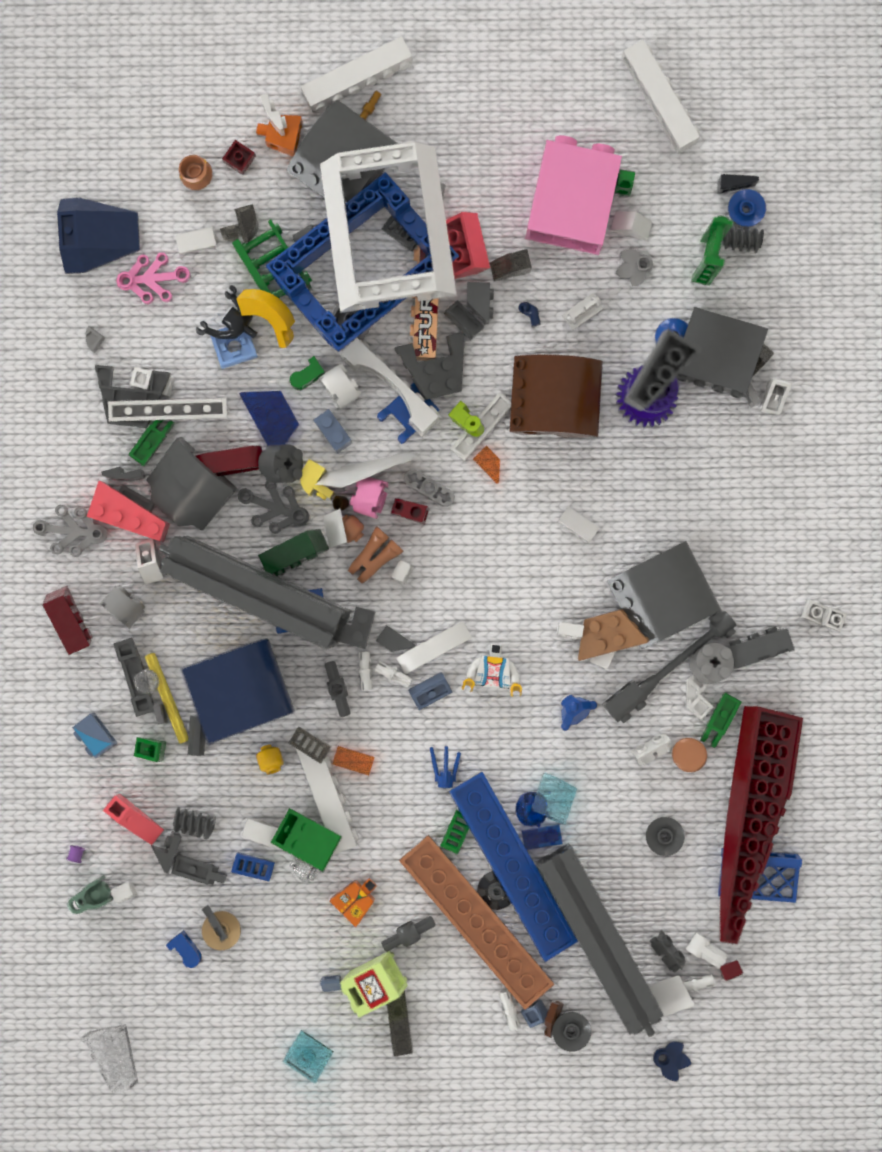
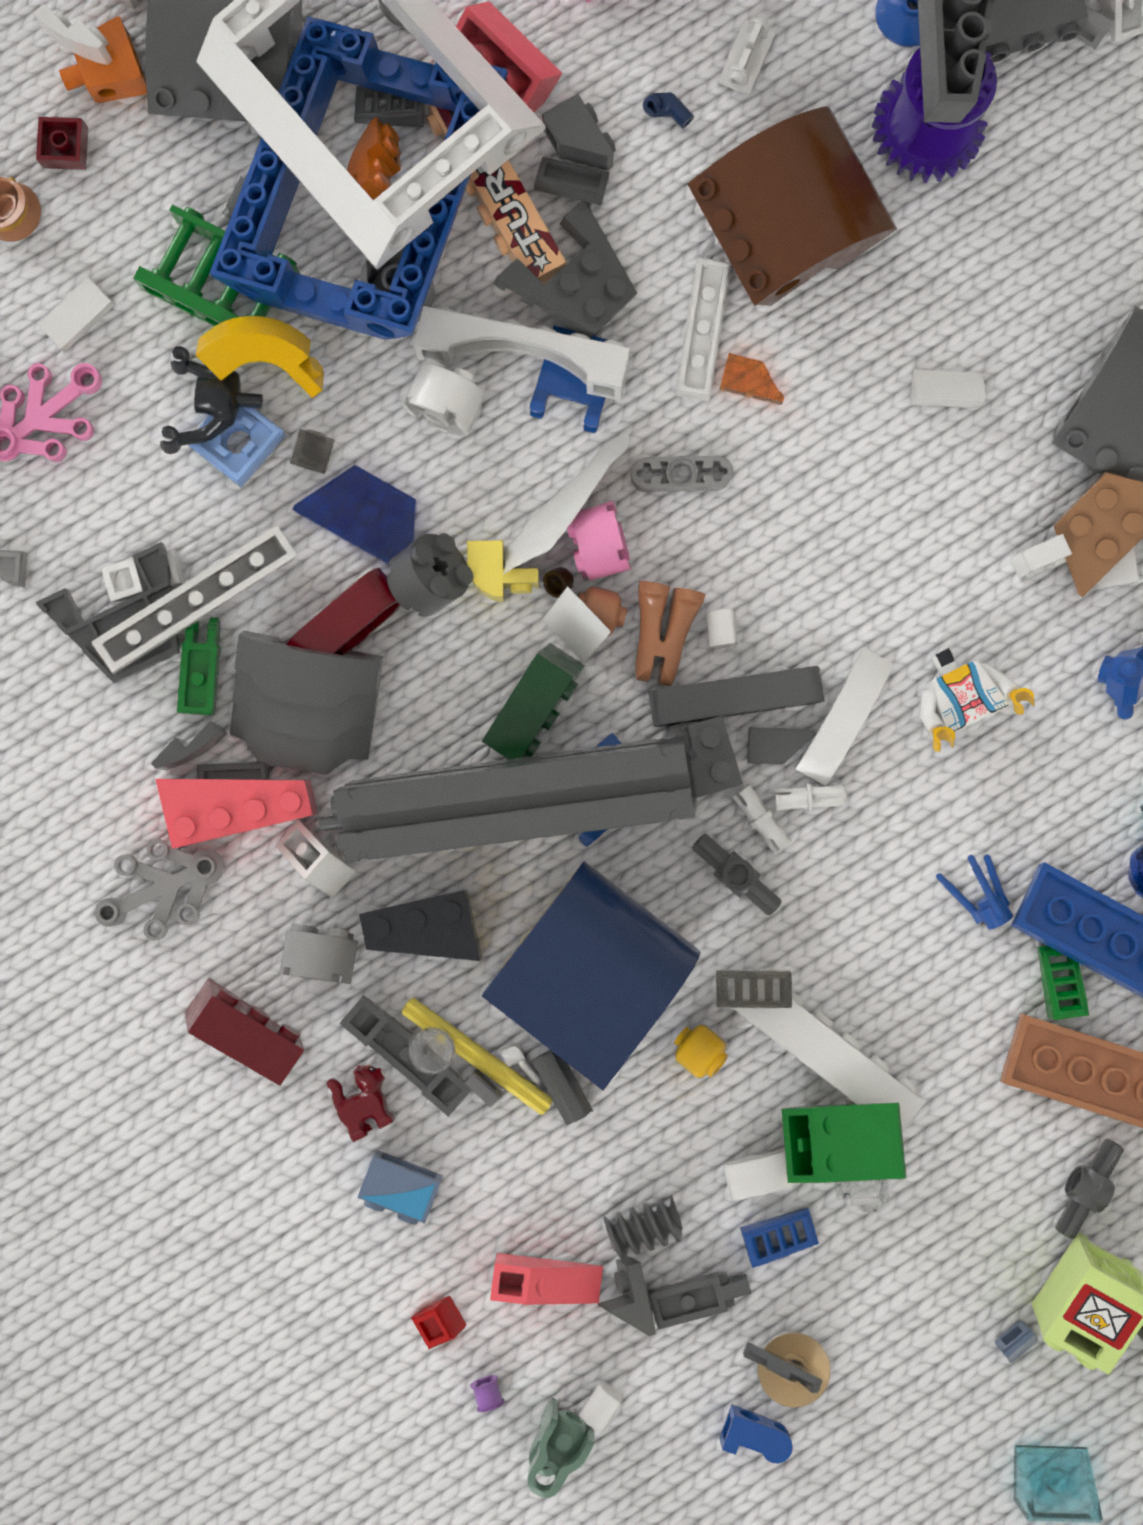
camera: 30 degrees left, 0 degrees up
(74, 808) = (439, 1322): none -> red slope
(103, 688) = (364, 1105): none -> dark red animal
(150, 749) = (501, 1154): green slope -> none
(179, 624) = (425, 927): none -> black wedge
(184, 707) = (514, 1054): none -> white hand
(246, 227) = (140, 244): clear smoke brick -> none
(263, 373) = (311, 450): none -> clear smoke brick
(277, 508) = (463, 651): dark grey plant -> none
(307, 376) = (383, 415): green leg -> none
(333, 431) = (476, 476): sand blue brick -> none
(353, 760) = (830, 970): clear orange tile -> none
(354, 900) = (973, 1189): orange torso -> none
(374, 258) = (376, 158): none -> orange slope
(389, 607) = (736, 696): none -> dark grey beam
(410, 510) = (674, 526): dark red leg -> none
(430, 691) = (881, 787): sand blue slope -> none
(461, 417) = (675, 332): lime leg -> none
(511, 265) = (593, 50): clear smoke slope -> none

